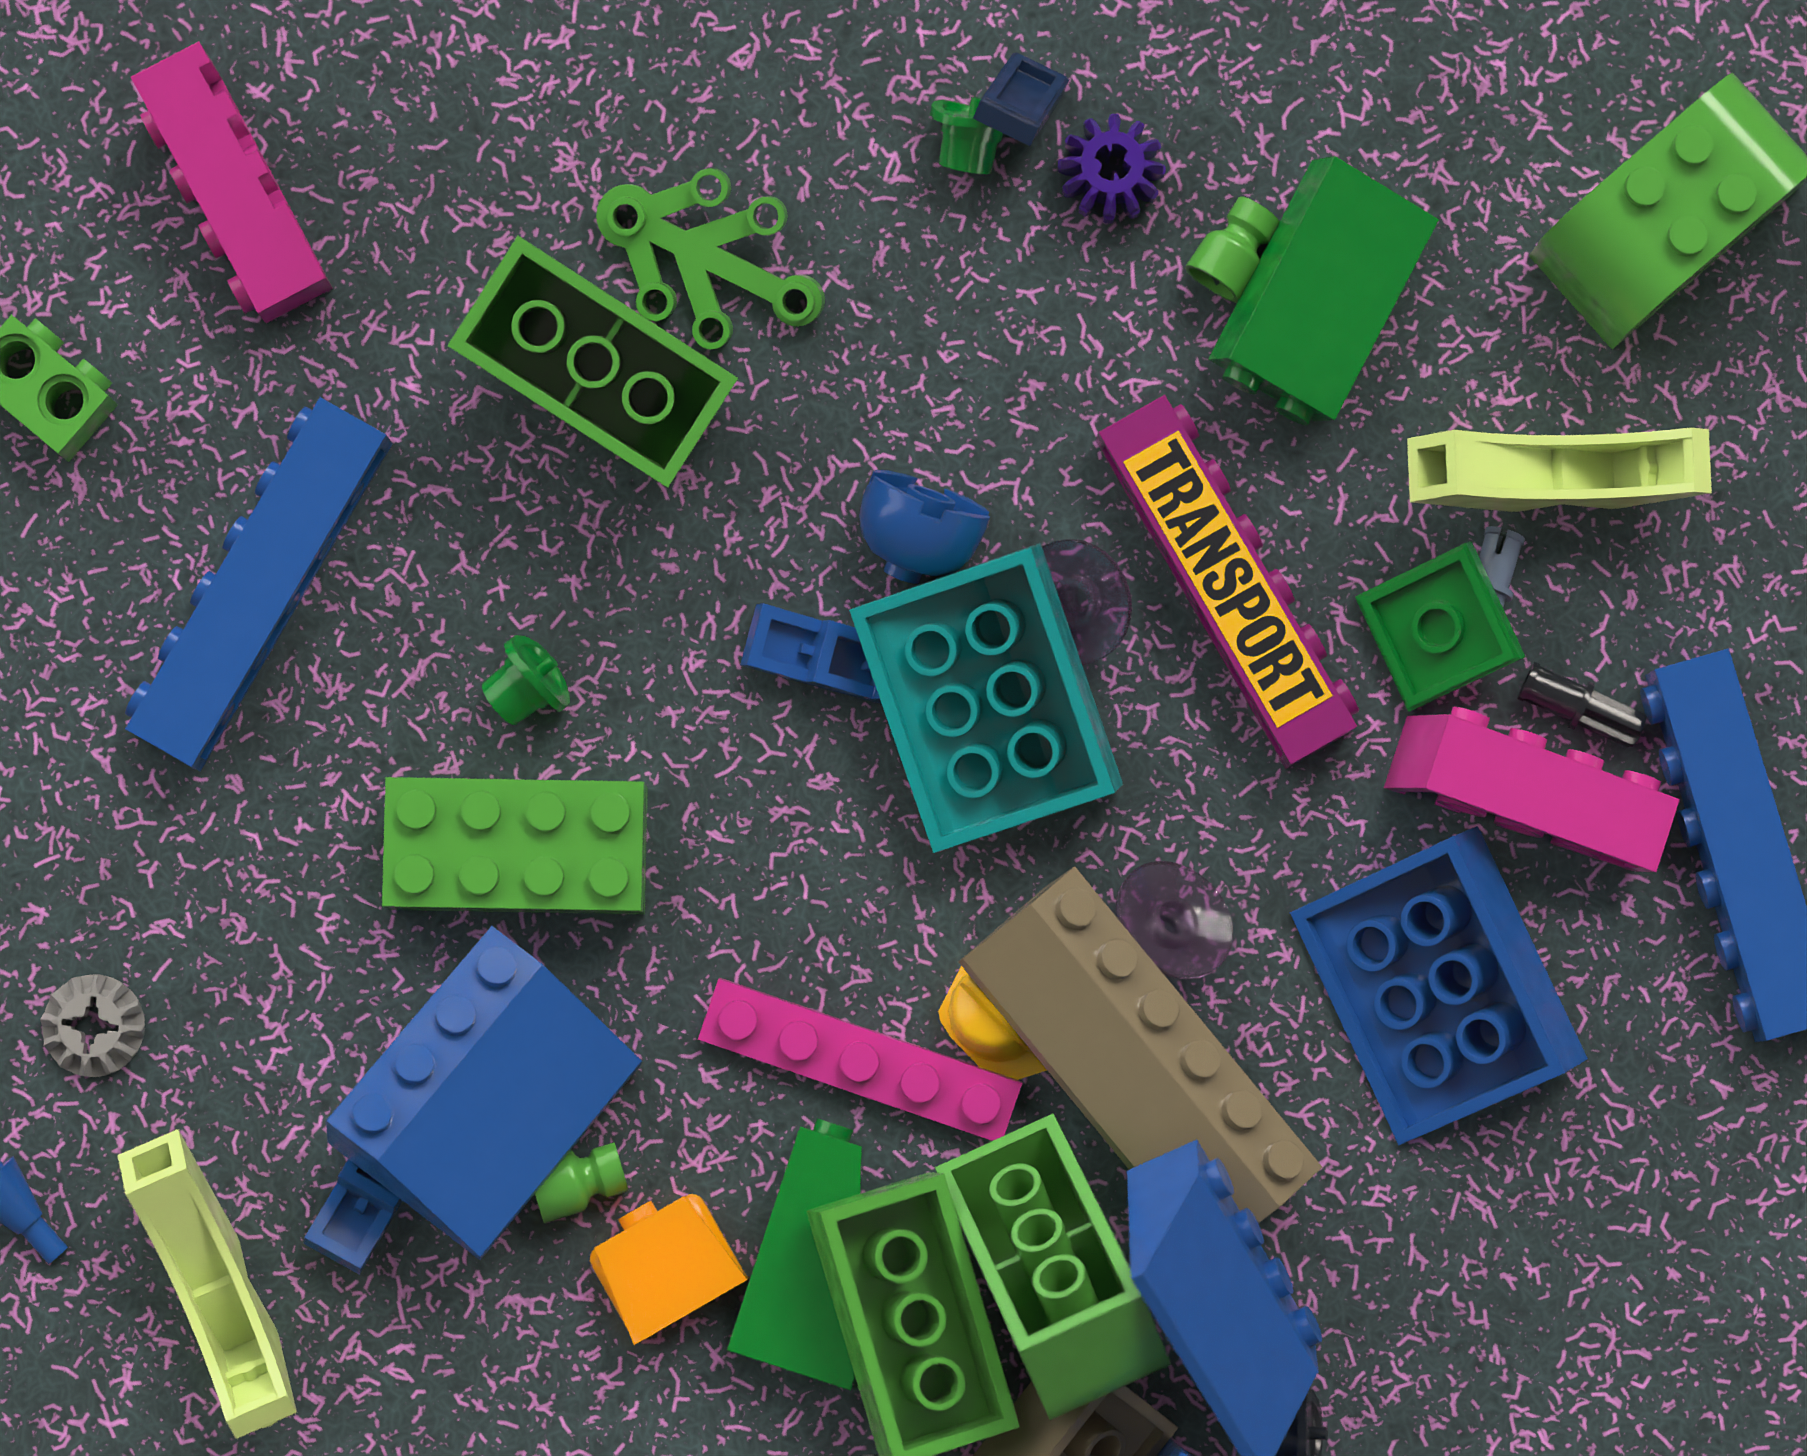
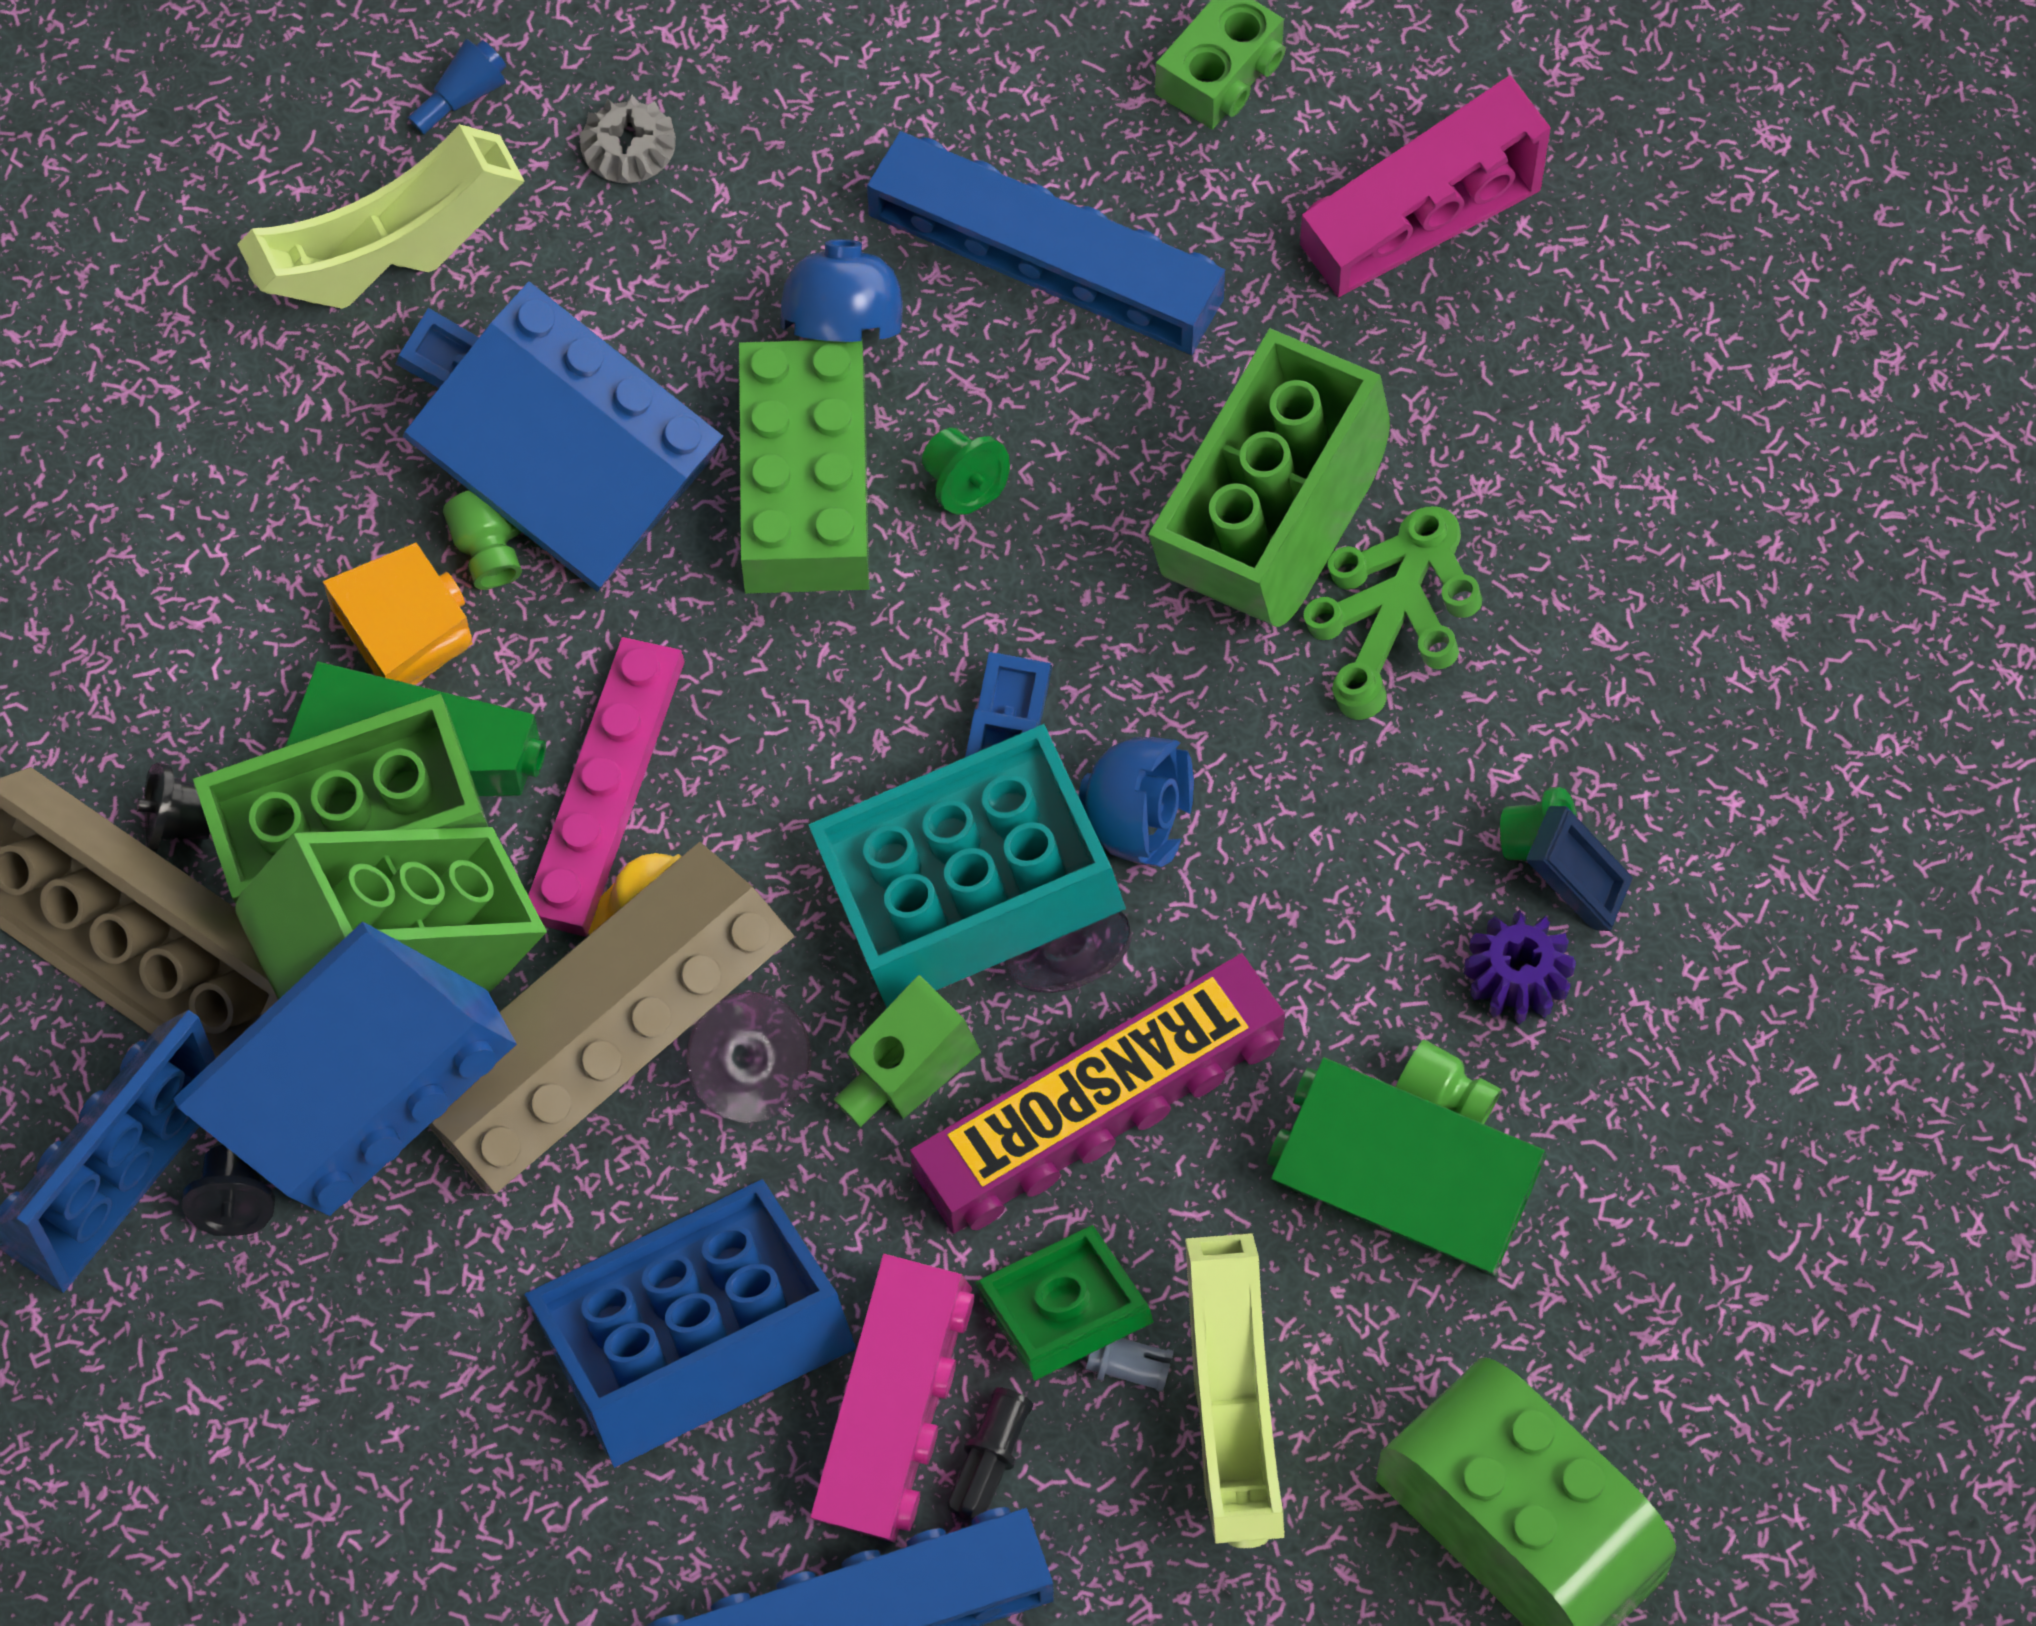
camera: 90 degrees right, 20 degrees down
(333, 798) = (841, 294): none -> blue cylinder
(1168, 745) = (919, 1034): none -> bright green torso

